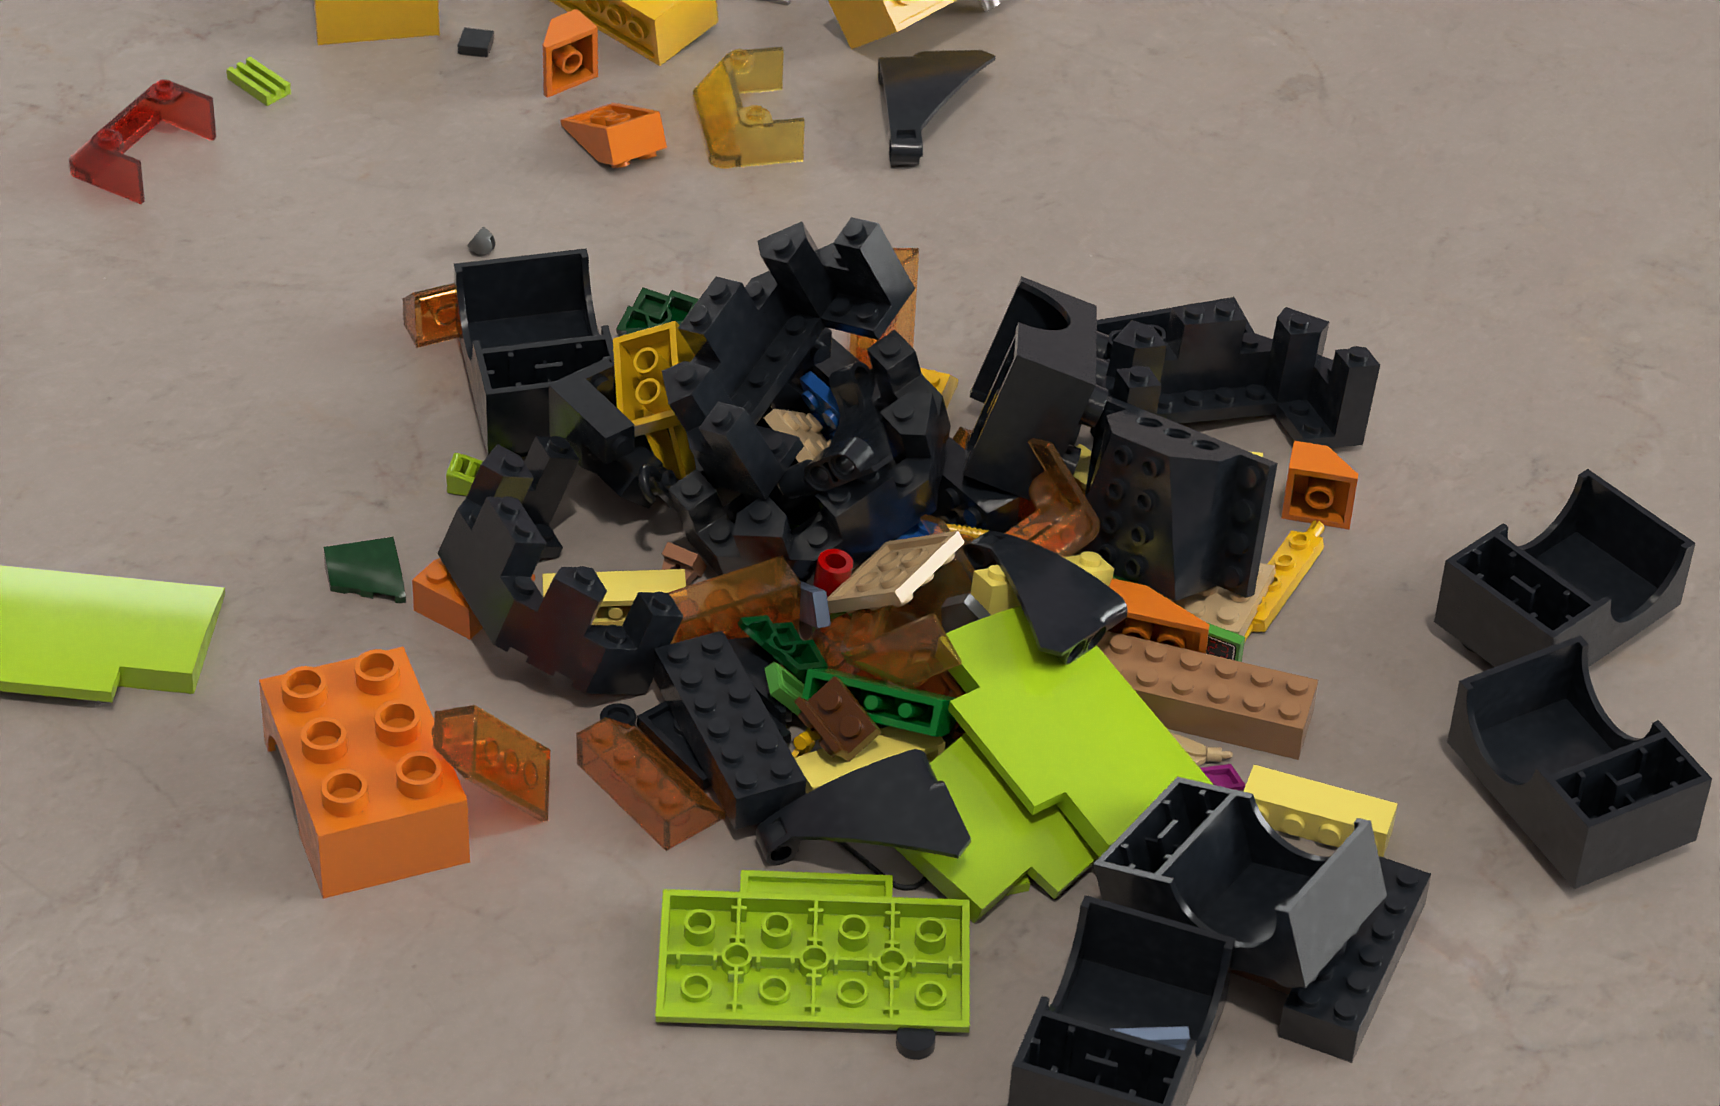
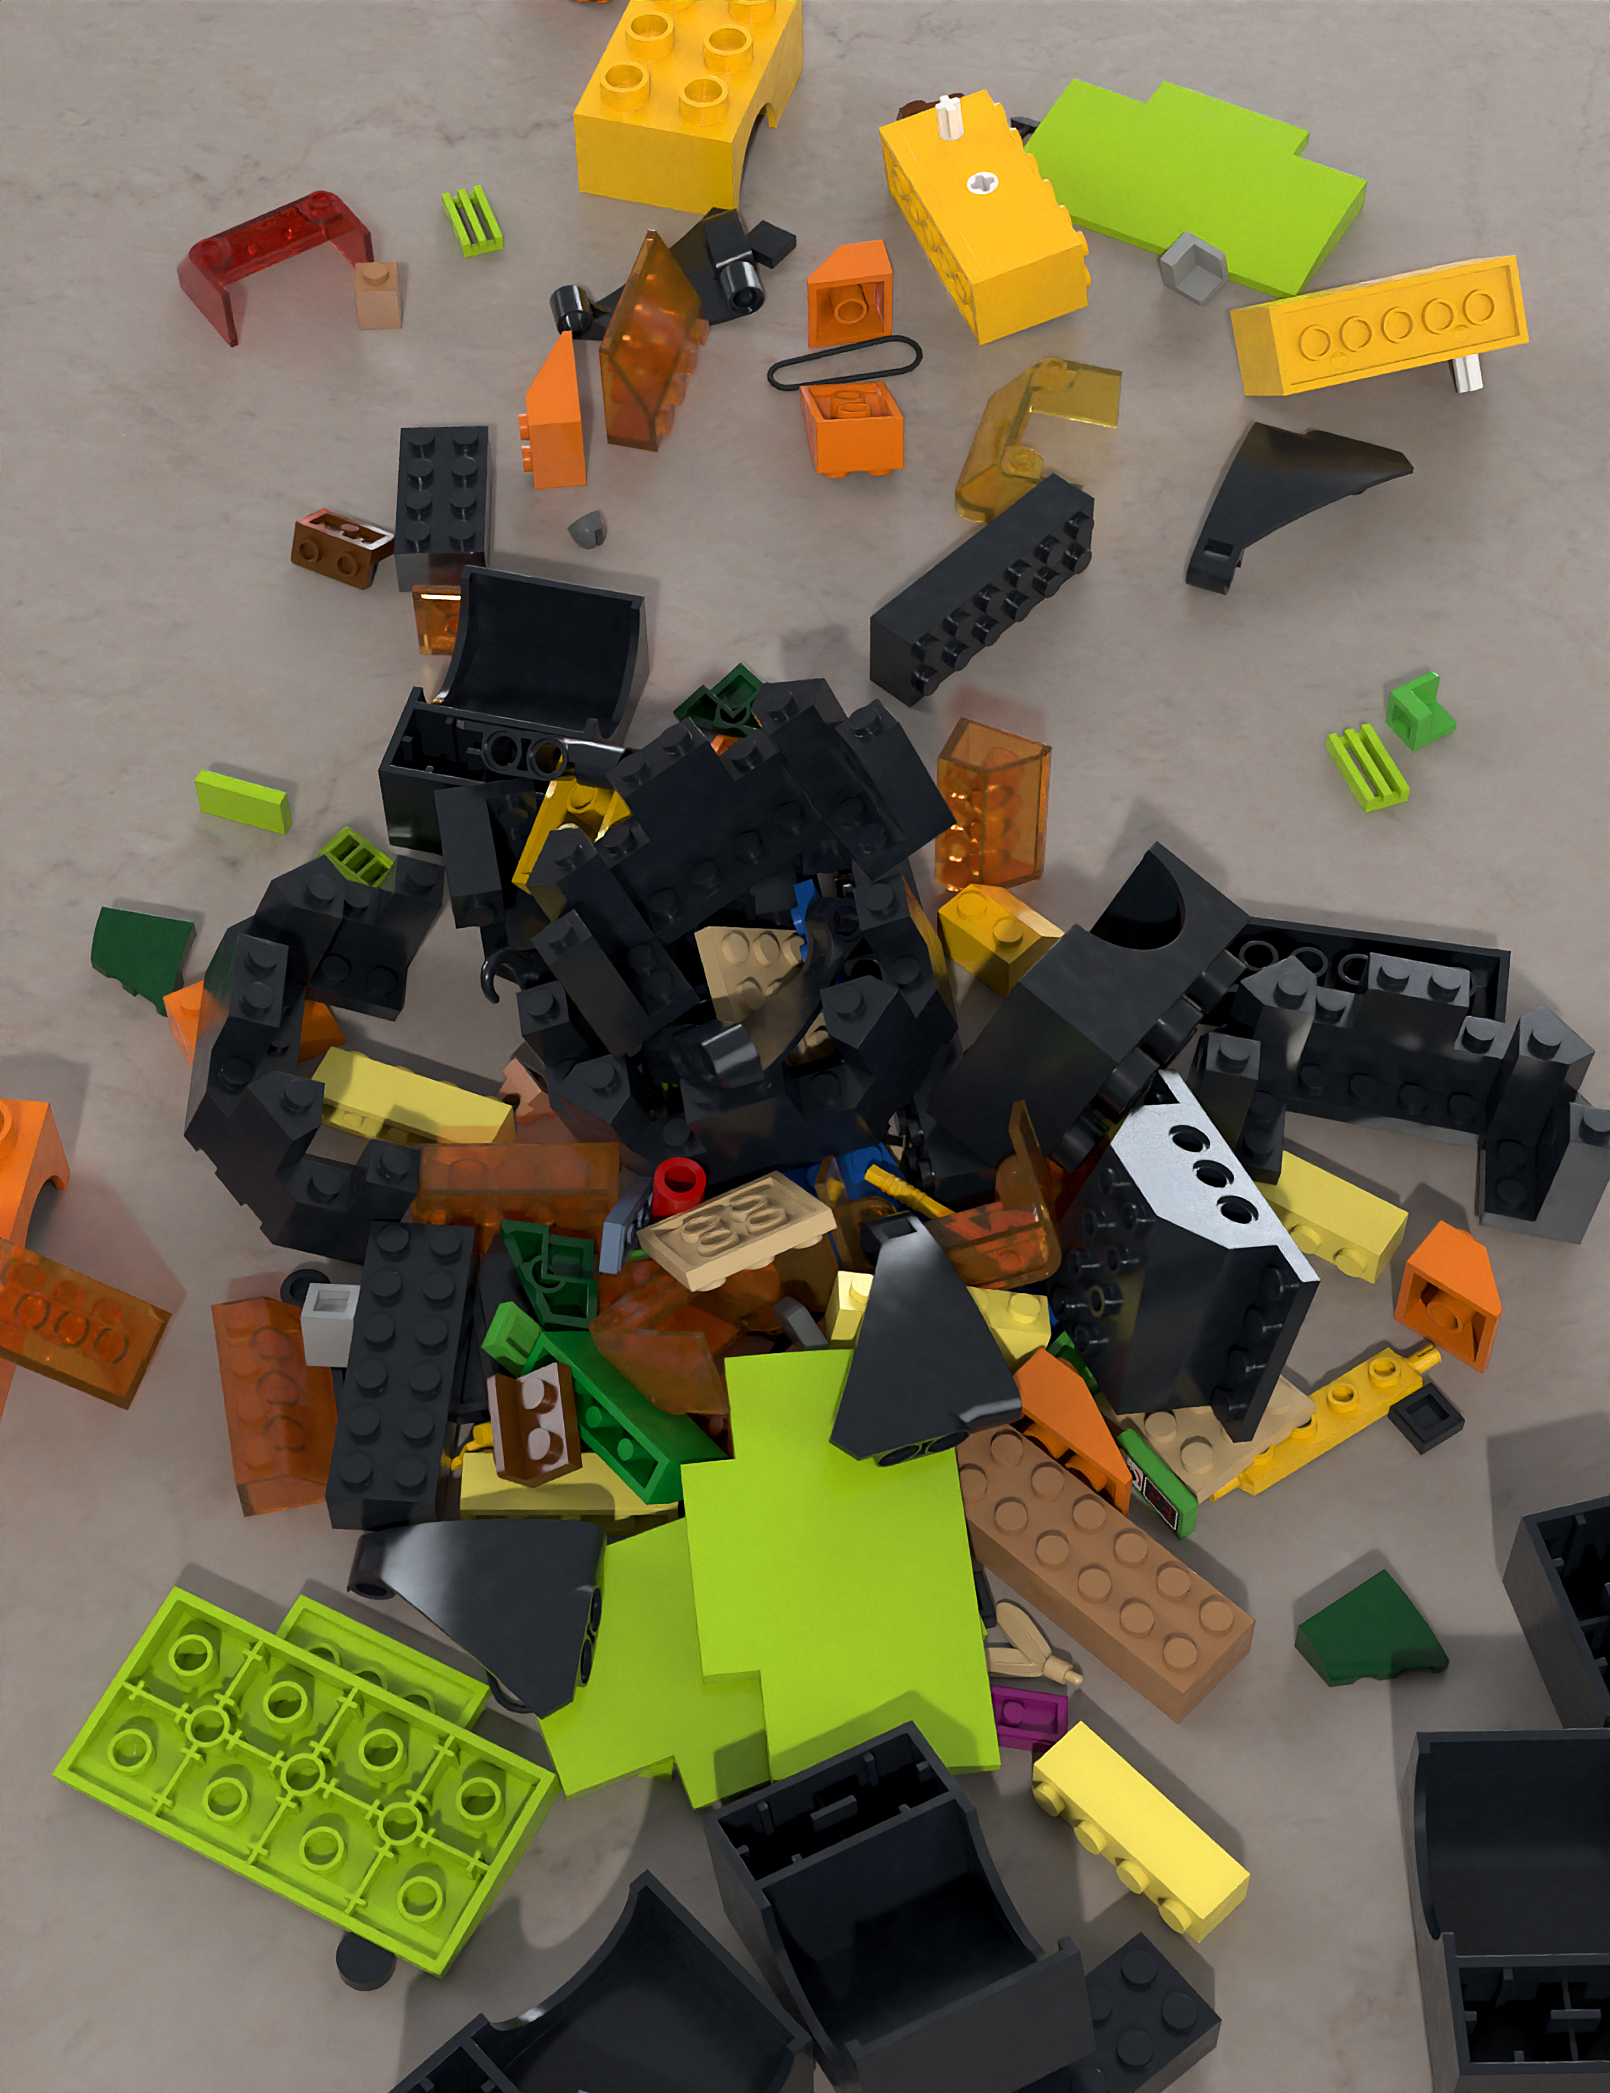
camera: 30 degrees right, 10 degrees up
(232, 141) = (378, 295): none -> medium nougat brick
(320, 299) = (340, 547): none -> reddish brown bracket
(368, 462) = (243, 802): none -> lime tile
(375, 252) = (442, 504): none -> black brick
(426, 180) = (554, 422): none -> orange slope
(441, 77) = (713, 258): none -> black panel
(459, 122) = (650, 348): none -> clear orange slope
(575, 89) = (890, 338): none -> black piece
(660, 331) = (581, 758): none -> black panel
(662, 719) = (329, 1323): none -> light grey panel
(775, 193) = (981, 590): none -> black brick
(1072, 234) = (1356, 741): none -> lime tile
(1082, 196) = (1416, 713): none -> bright green panel
(1335, 560) = (1426, 1418): none -> black tile
(1378, 675) = (1369, 1635): none -> dark green slope

